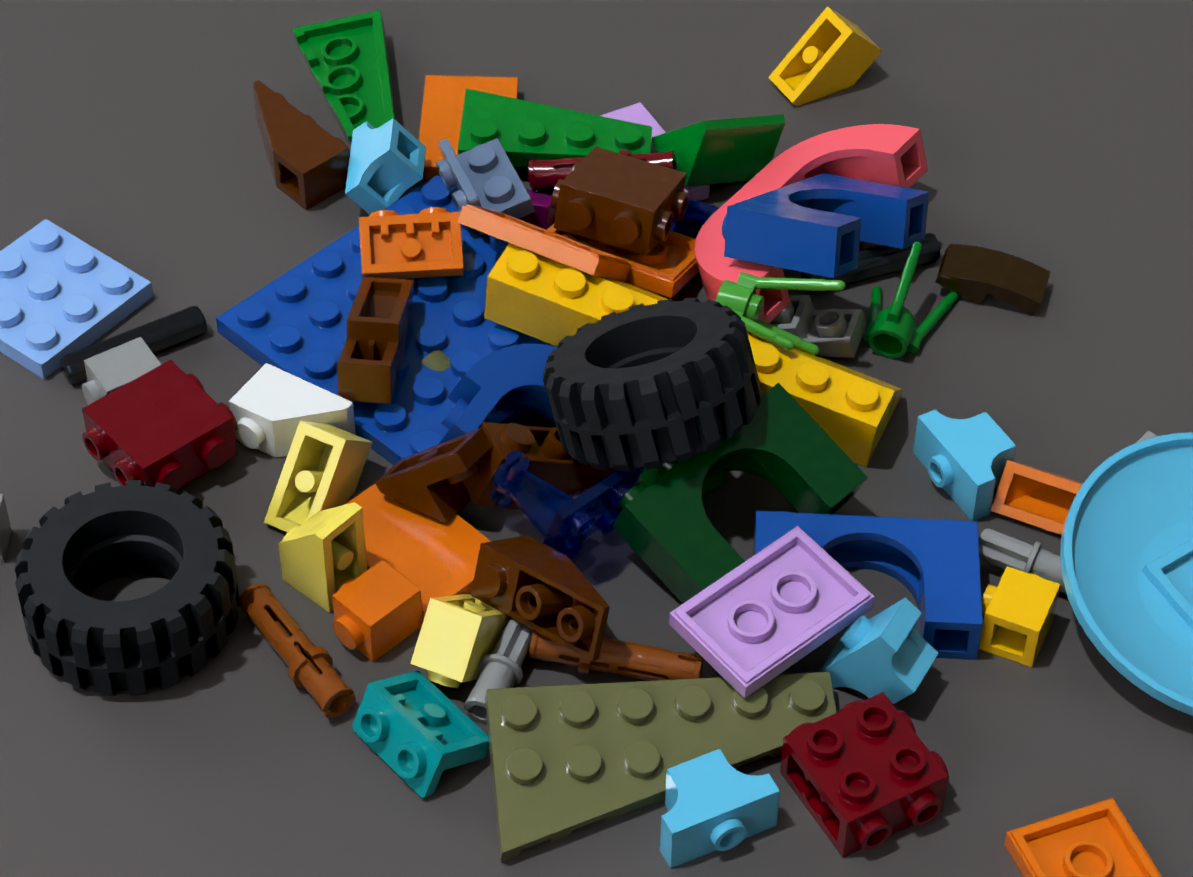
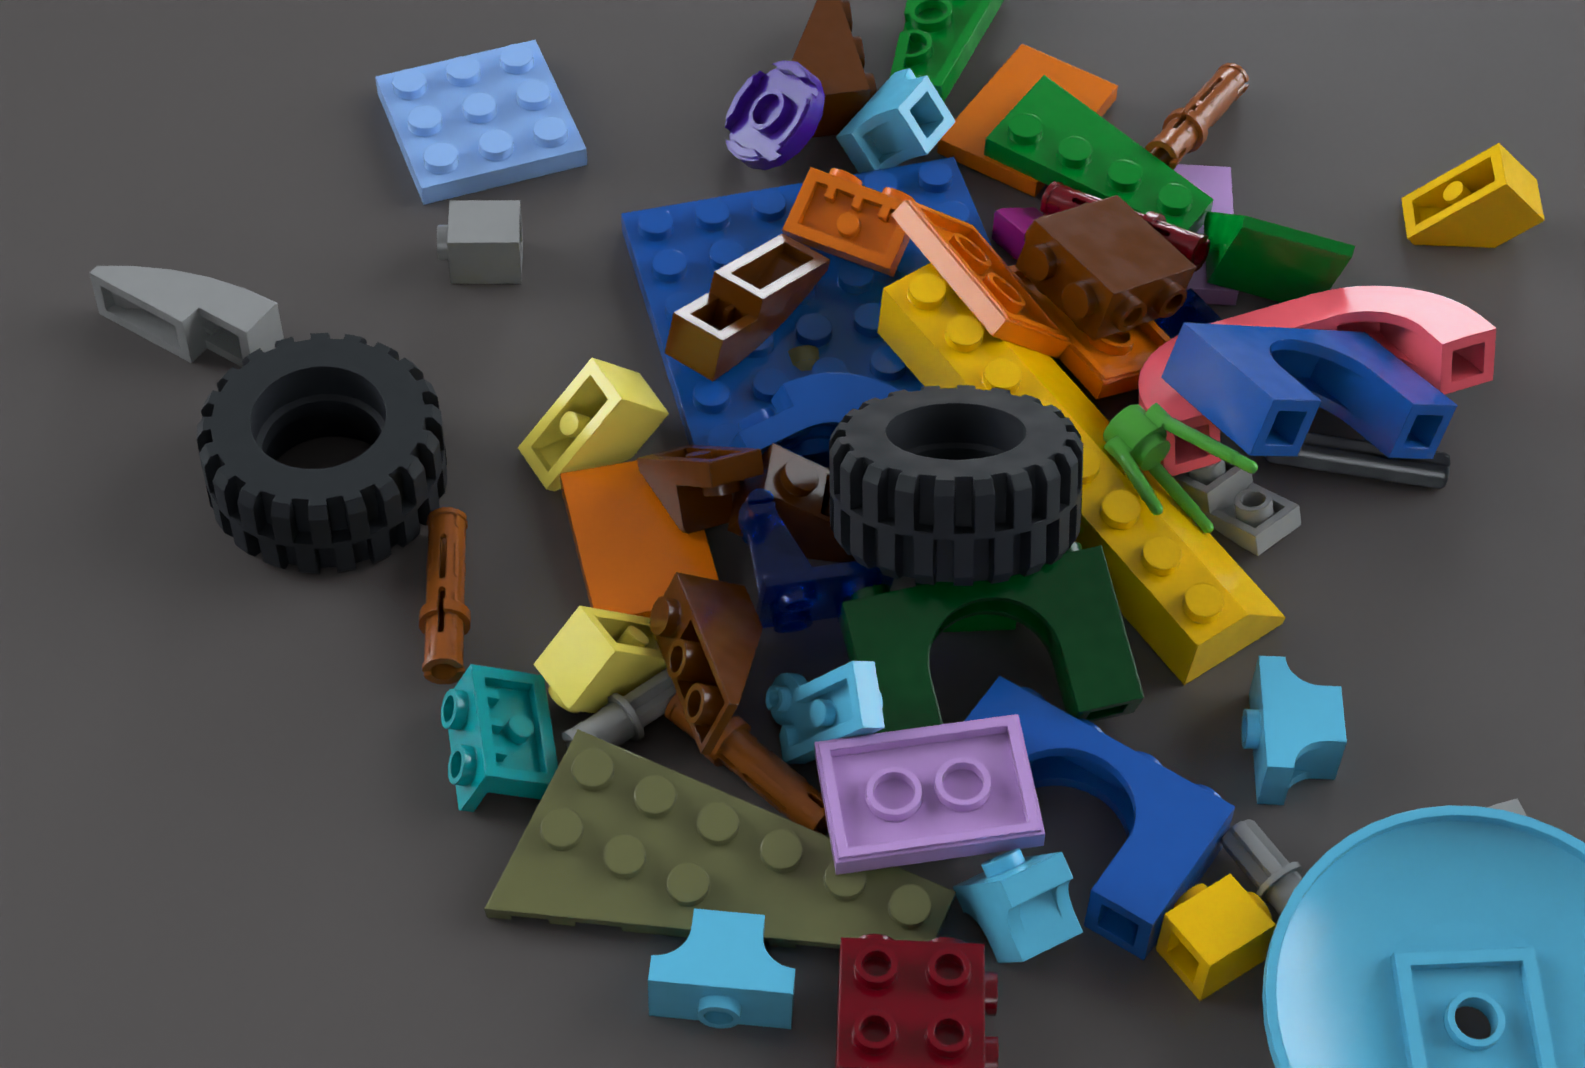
camera: 30 degrees right, 5 degrees up
(156, 334) = (543, 205): black axle -> none
(160, 429) = (474, 307): dark red brick -> none
(275, 402) = (612, 330): white slope -> none
(286, 197) = (774, 115): none -> dark purple tile
(325, 553) = (536, 514): light yellow slope -> none
(376, 610) = (543, 590): orange brick -> none
(484, 179) = (981, 183): sand blue bracket -> none
(593, 84) = (1188, 126): none -> dark orange pin
(656, 589) = (827, 708): none -> medium azure hinge
(893, 329) = (1325, 540): green plant -> none
(980, 271) = (1493, 538): dark brown slope -> none
(1035, 496) = (1339, 801): orange slope -> none

